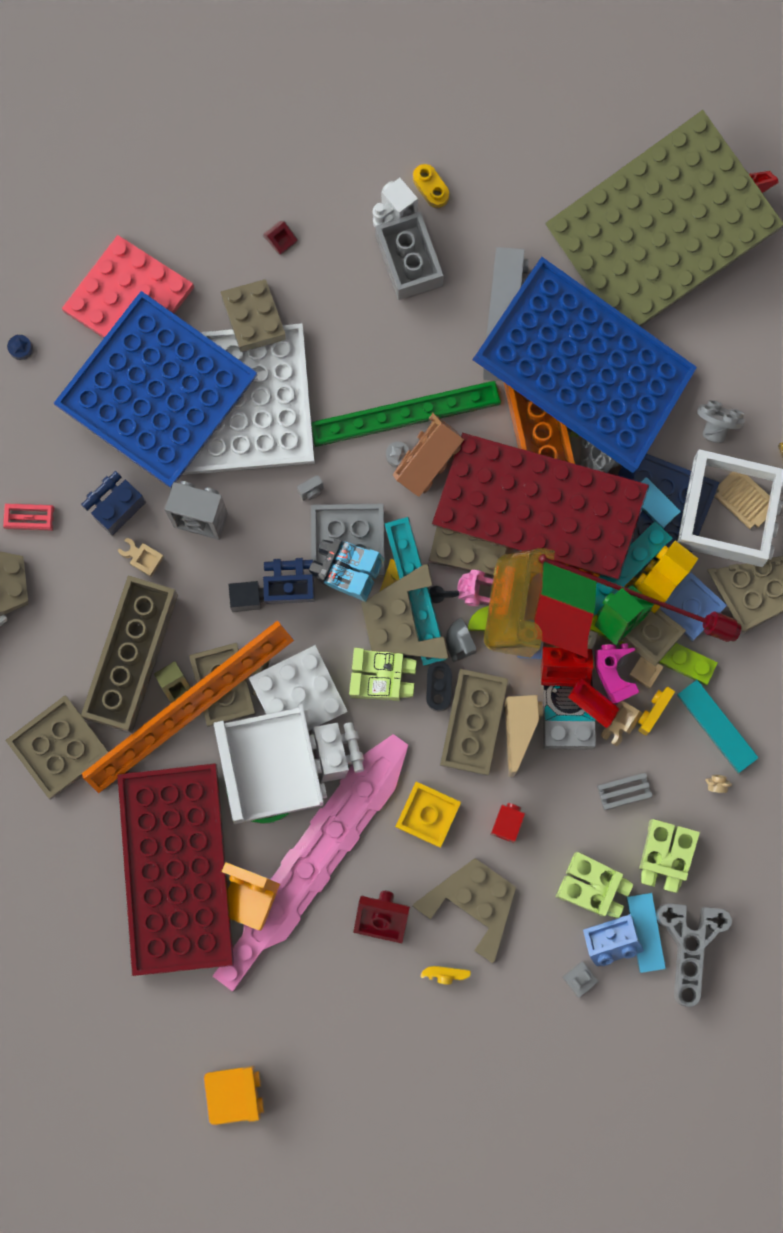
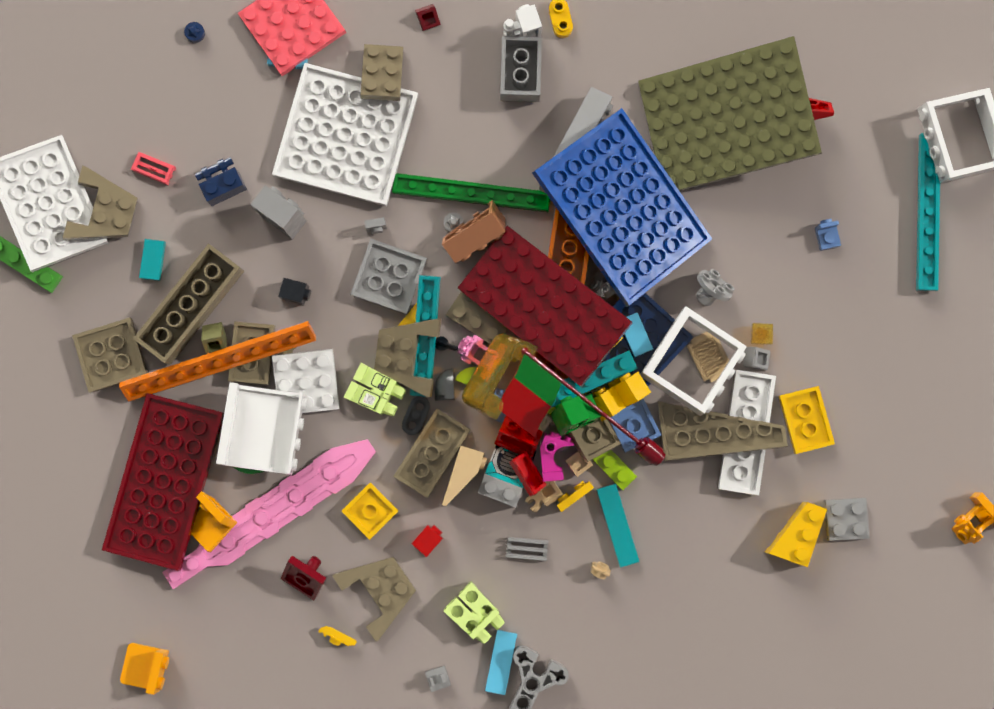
camera: 20 degrees right, 5 degrees up
(66, 620) = (152, 259): none -> teal tile
(144, 558) = (228, 232): tan plate -> none
(155, 389) = (284, 104): blue plate -> none
(288, 588) = (330, 298): dark blue brick -> none
(331, 751) = (312, 437): white brick -> none
(347, 568) = (373, 293): hips -> none
(612, 941) = (472, 659): medium blue bracket -> none
(670, 863) = (533, 612): yellowish green hips -> none

